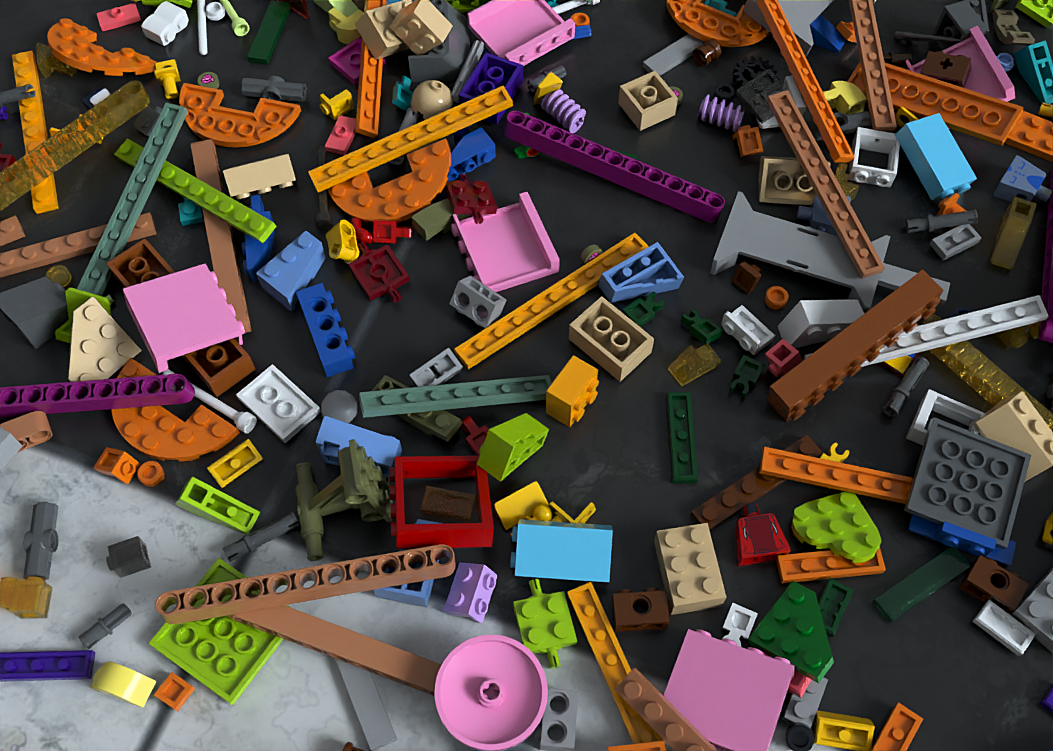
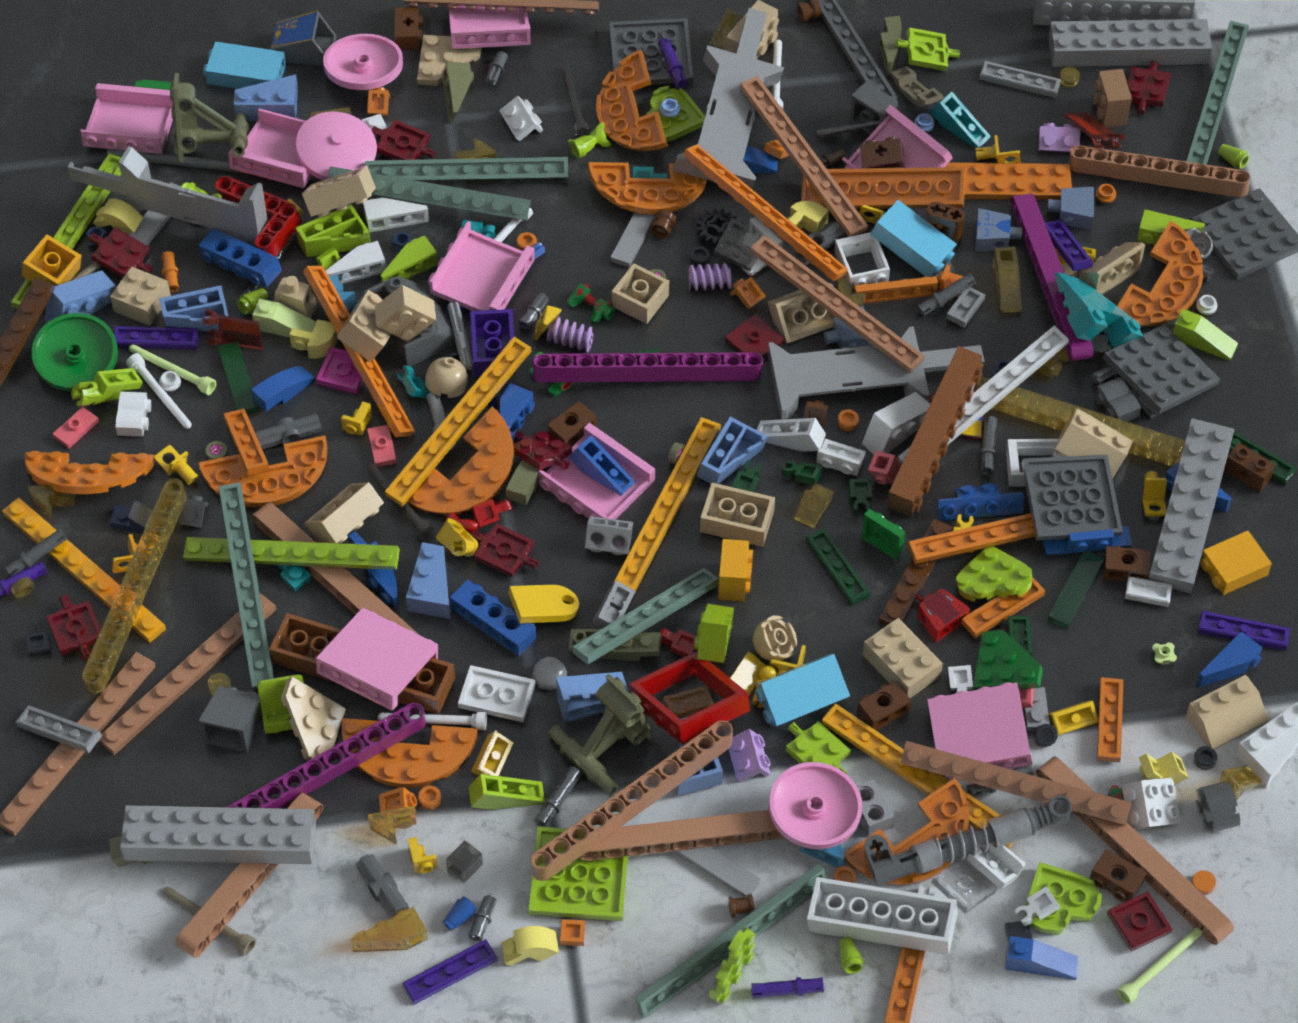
camera: 30 degrees left, 5 degrees down
(88, 608) = (459, 913): none -> blue cone
(91, 527) = (420, 862): none -> yellow bracket
(92, 480) = (386, 822): none -> clear yellow slope
(231, 82) = (246, 441): none -> orange plate
(295, 51) = (281, 387): none -> blue slope
(376, 338) = (543, 603): none -> yellow tile
(508, 186) = (575, 415): none -> reddish brown brick
(512, 235) = (600, 466): none -> blue slope
(569, 481) = (774, 639): none -> tan cylinder
(607, 100) = (601, 309): none -> green piece
(714, 286) = (794, 434): none -> white slope
(729, 180) = (753, 337): none -> dark red plate
(743, 426) = (883, 534): none -> green plate
(866, 440) = (979, 502): none -> blue bracket
(895, 197) = (898, 289): none -> orange plate
(981, 157) = (951, 224): none -> reddish brown connector
(982, 715) = (1164, 658): none -> yellowish green plate

